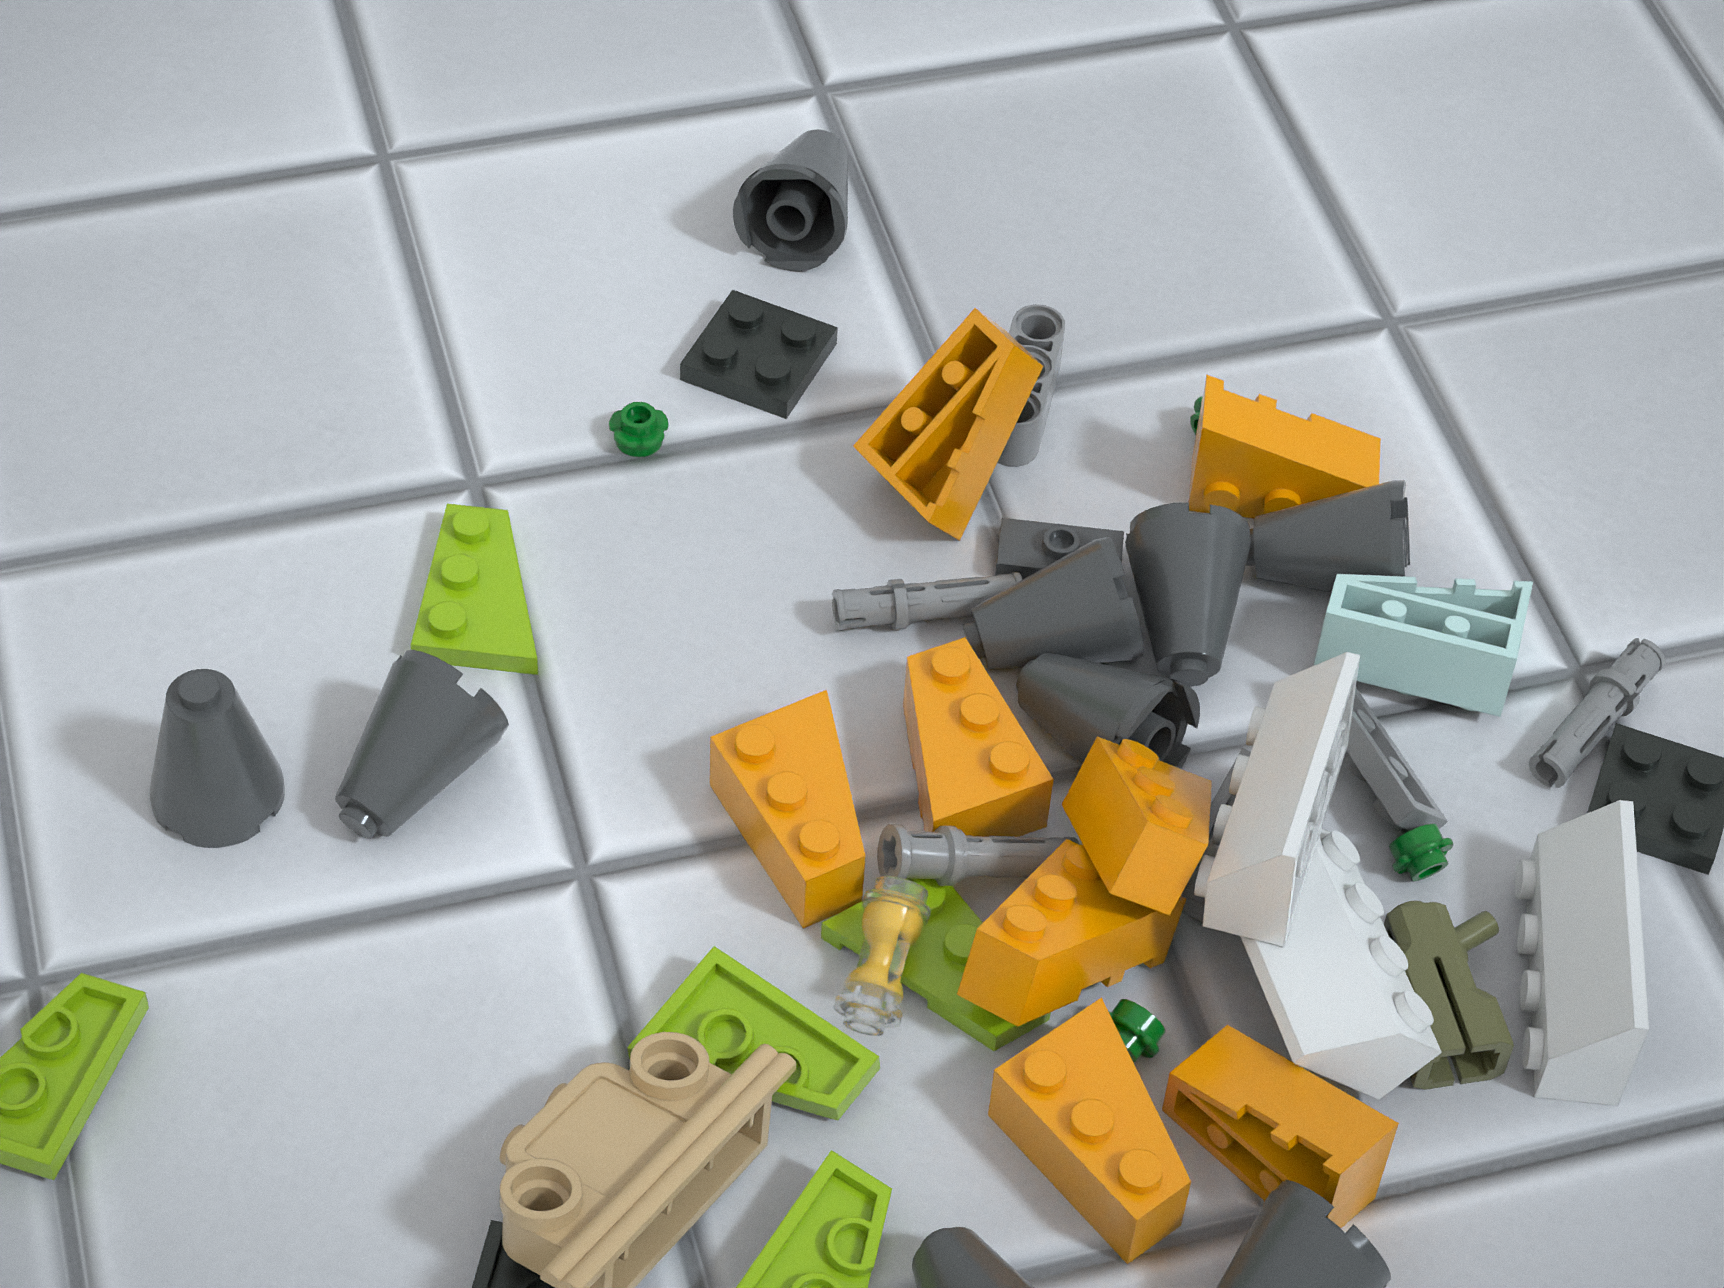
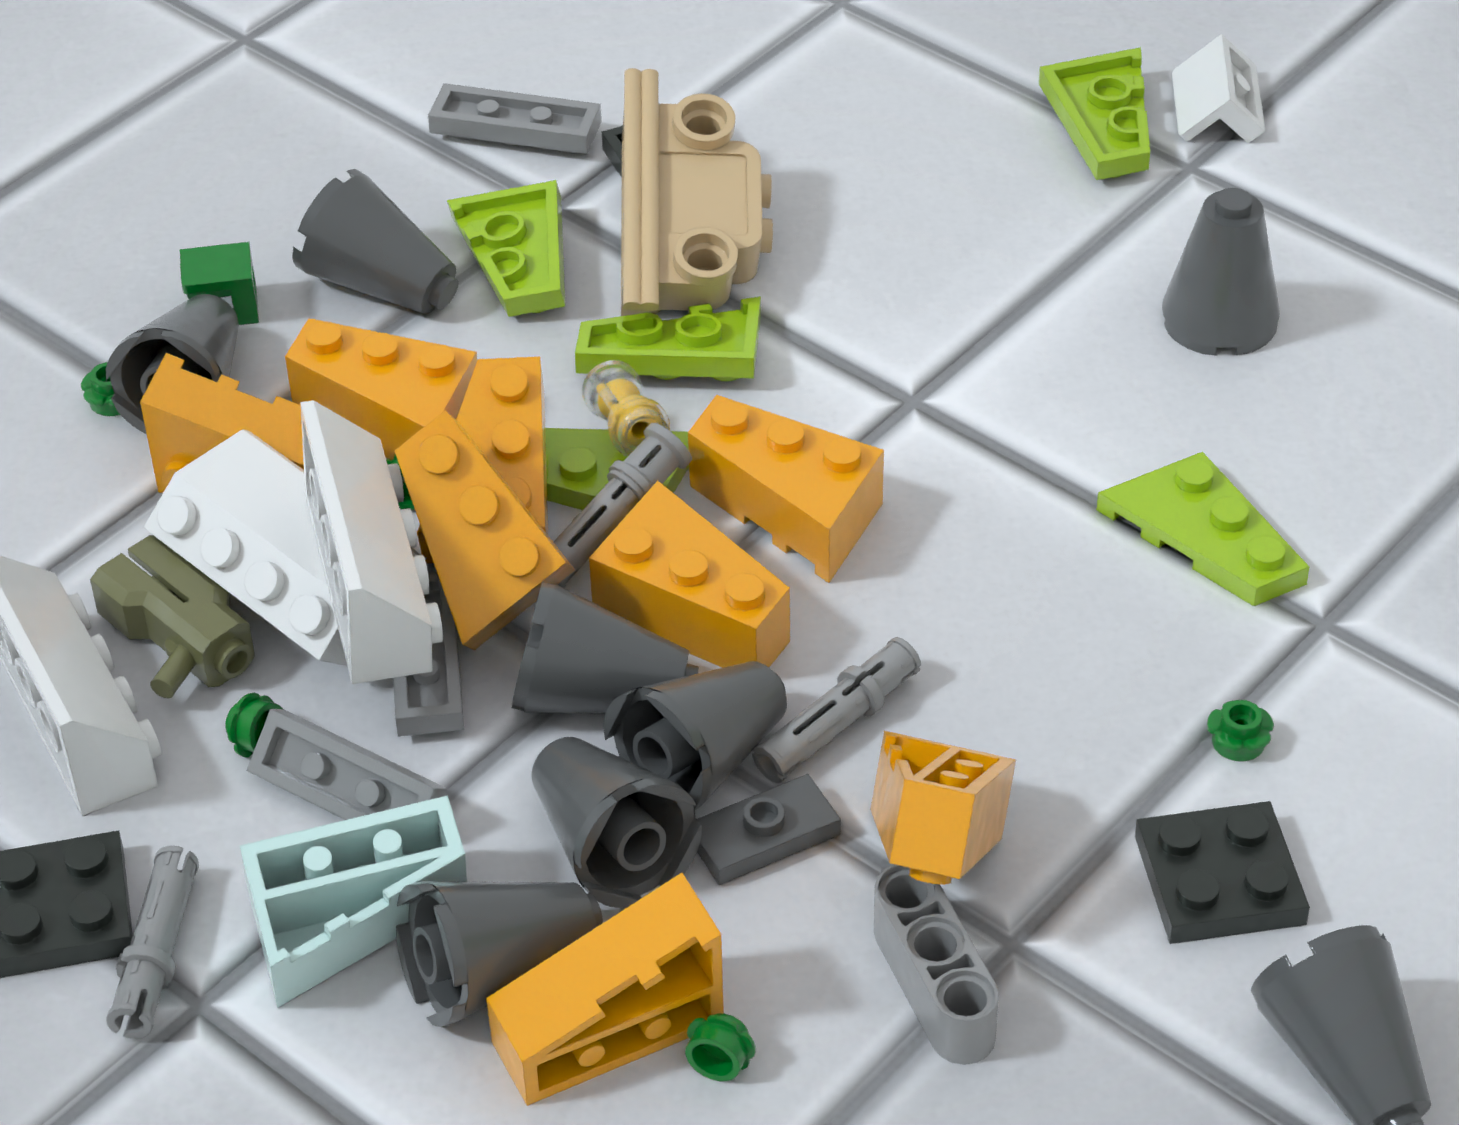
camera: 150 degrees right, 5 degrees down
(415, 744) = (1106, 378): dark grey cone -> none

